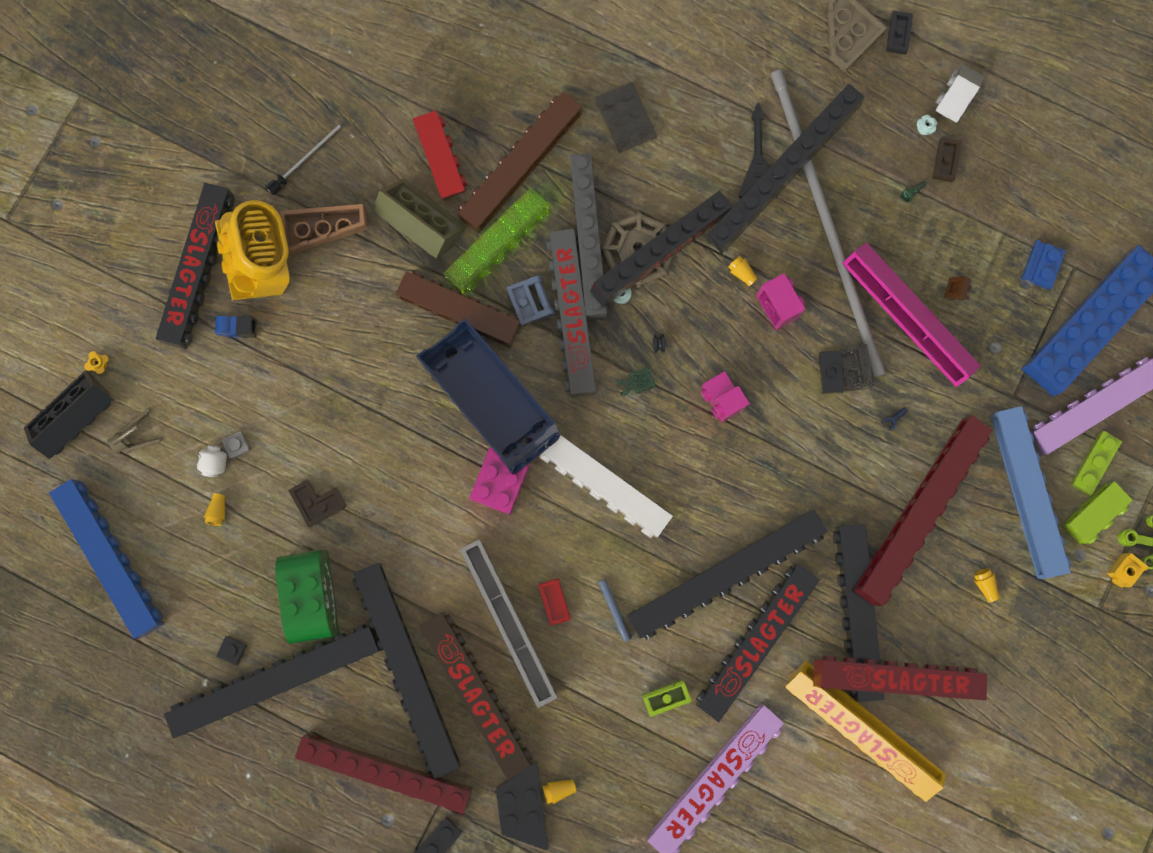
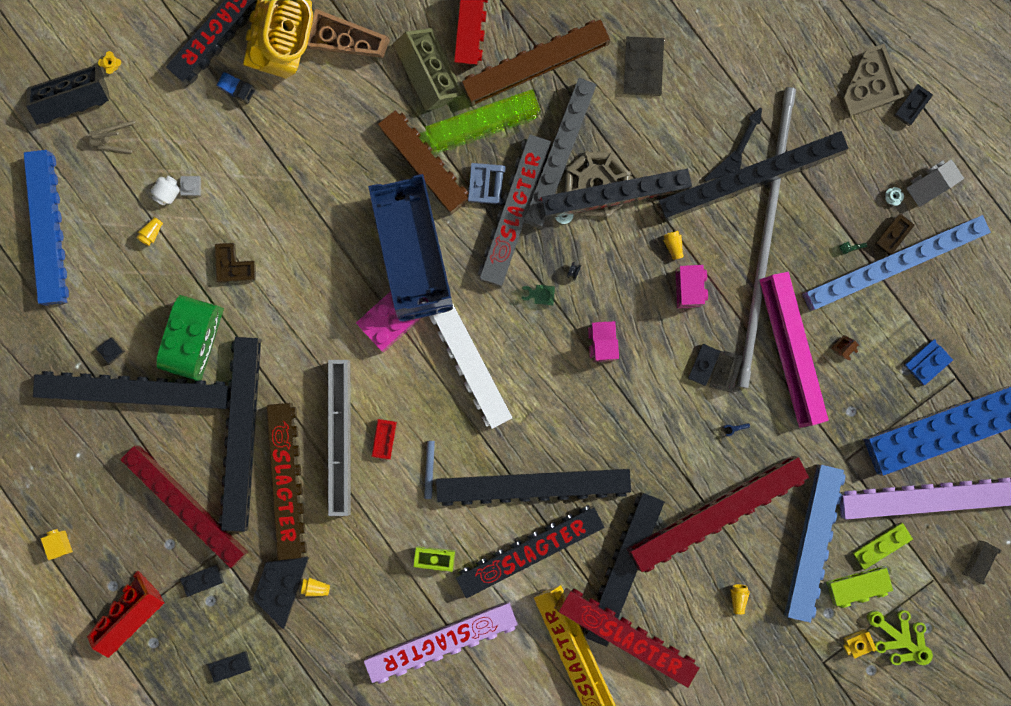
camera: 30 degrees right, 5 degrees up
(963, 186) = (896, 263): none -> medium blue brick

